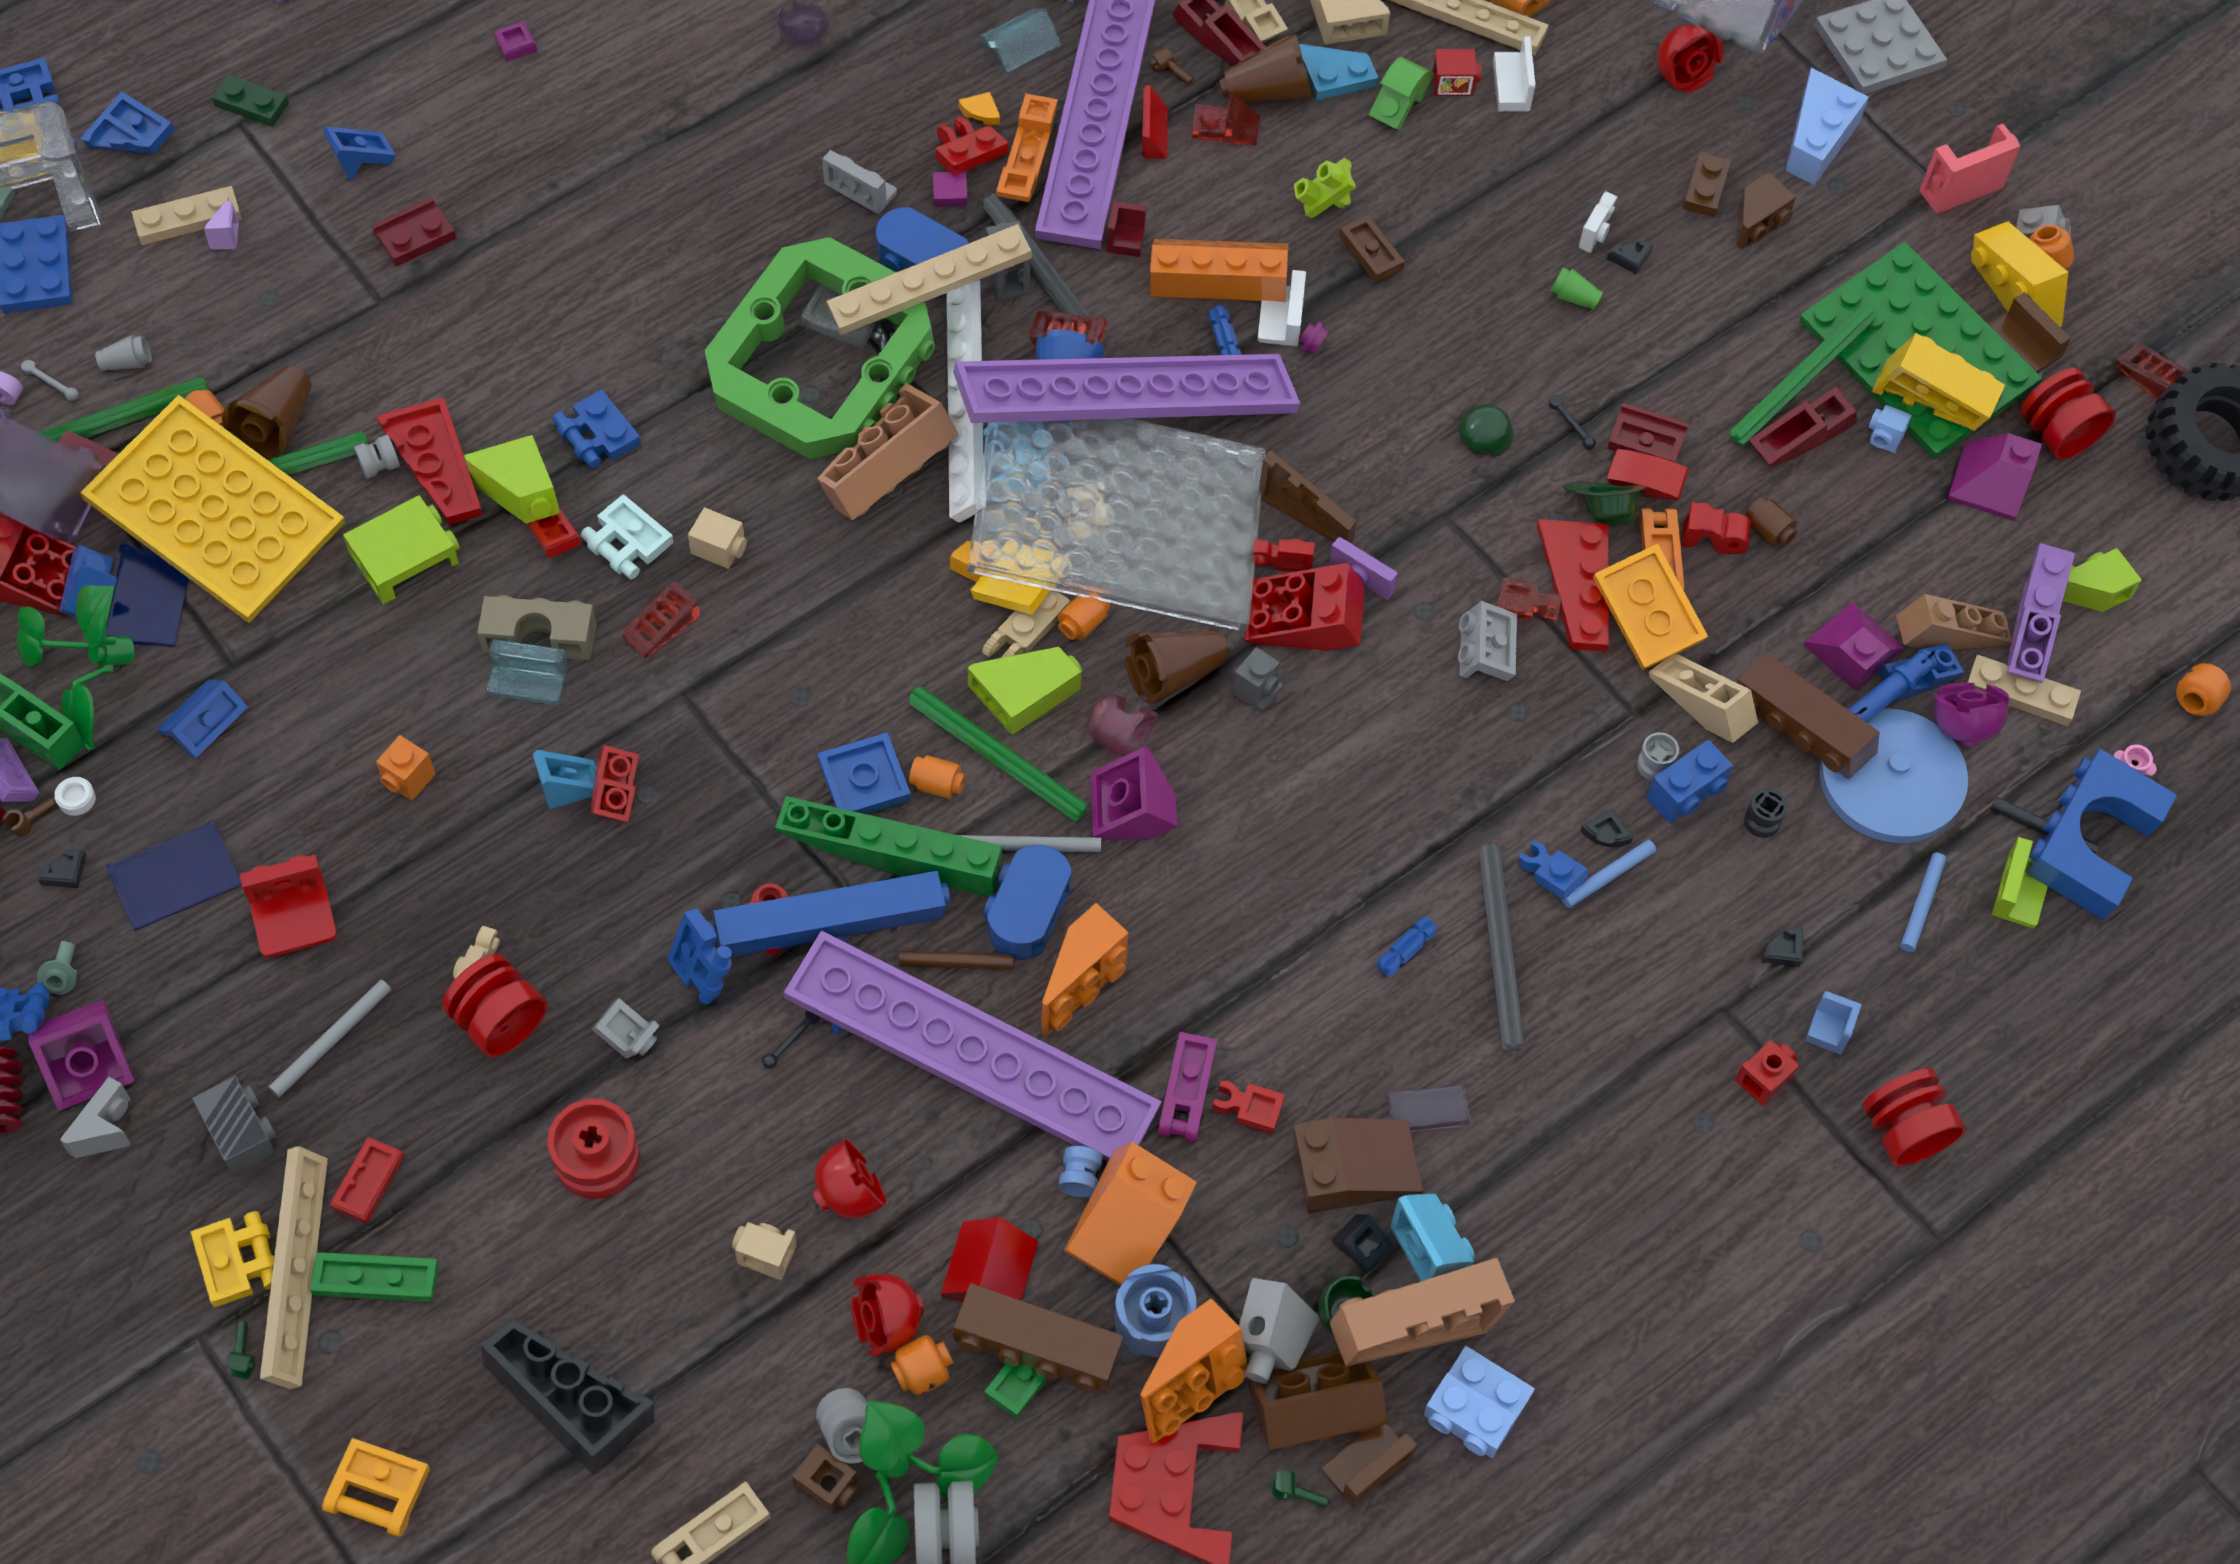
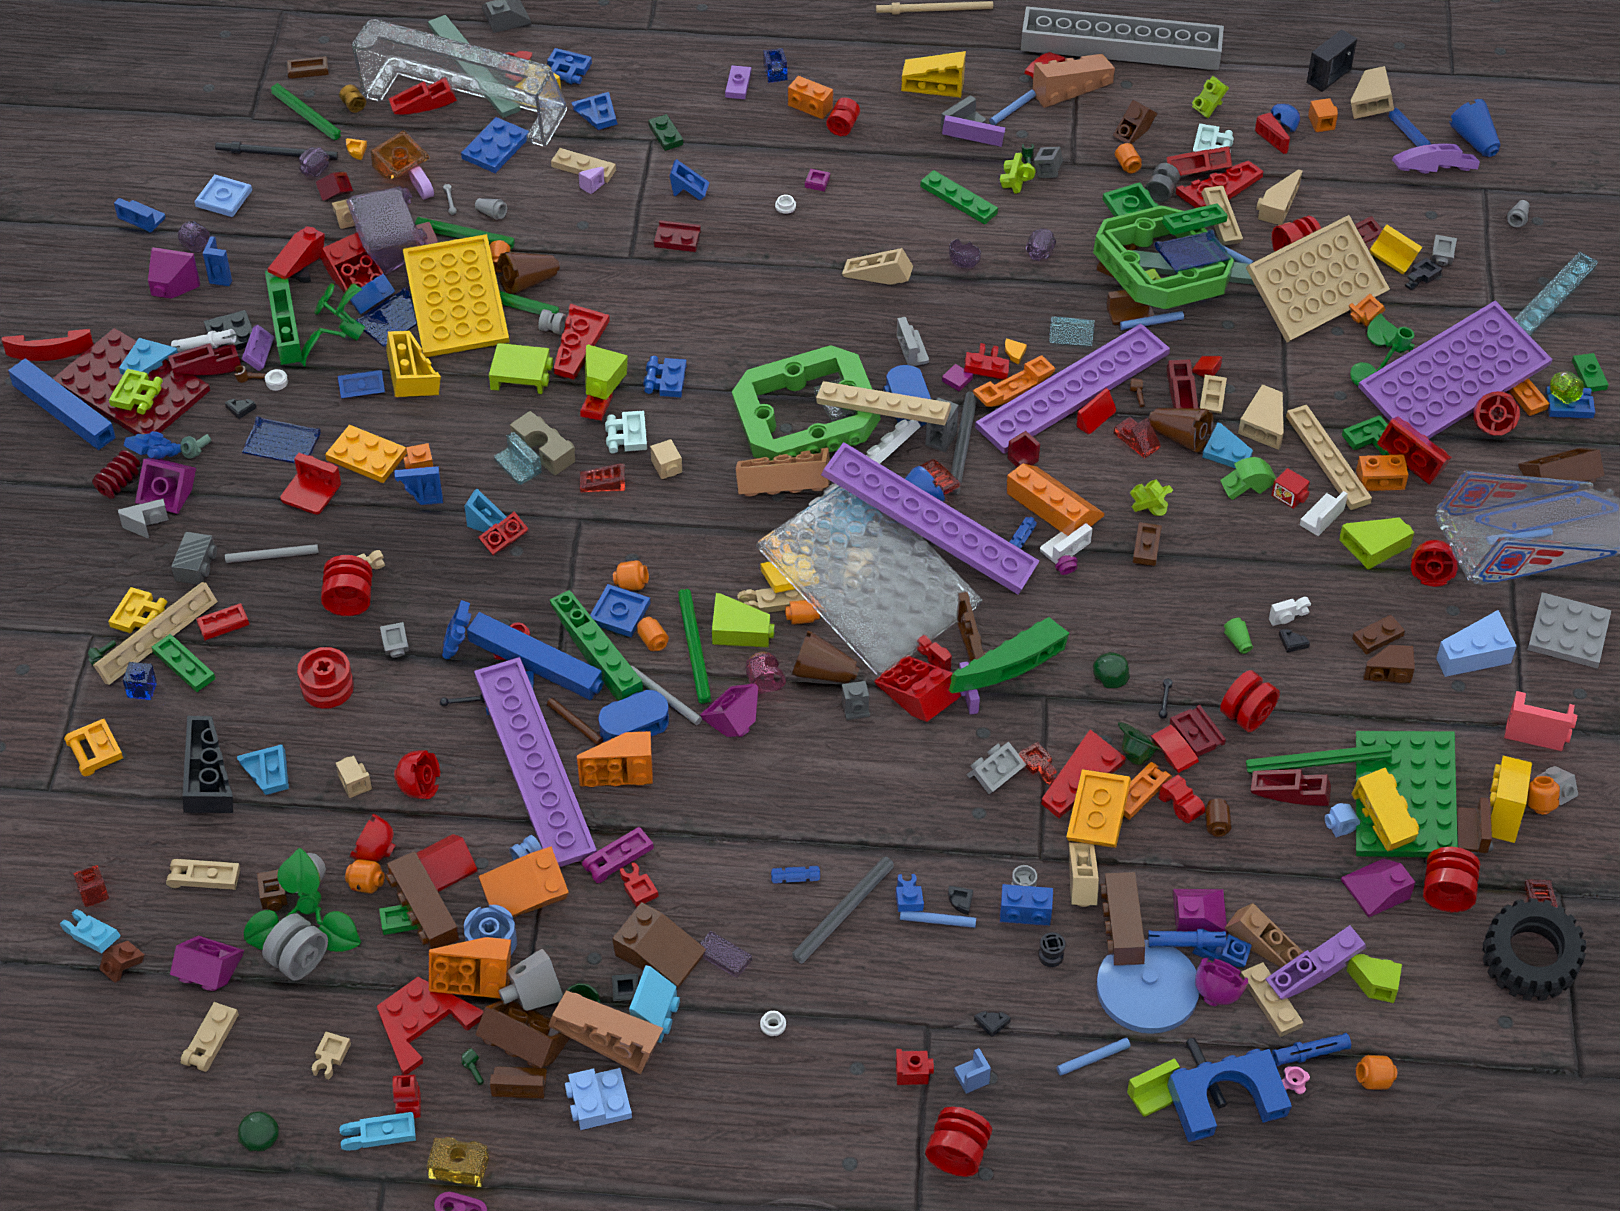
camera: 45 degrees right, 10 degrees down
(251, 650) = (409, 368): none -> yellow wedge
(312, 809) = (366, 453): none -> light orange plate
(345, 1348) = (139, 680): none -> clear blue brick
(451, 795) = (422, 484): none -> blue wing
(511, 99) = (785, 204): none -> white plate
(642, 1329) = (267, 768): none -> dark azure wing
(718, 107) = (882, 267): none -> tan slope
(833, 721) = (631, 575): none -> orange head
(1383, 490) = (1012, 657): none -> green slope
(1576, 1139) = (773, 1017): none -> white plate
(1599, 73) = (1376, 539): none -> lime slope
(1678, 358) = (1249, 701): none -> red wheel
(2112, 725) = (1283, 1055): none -> blue pin

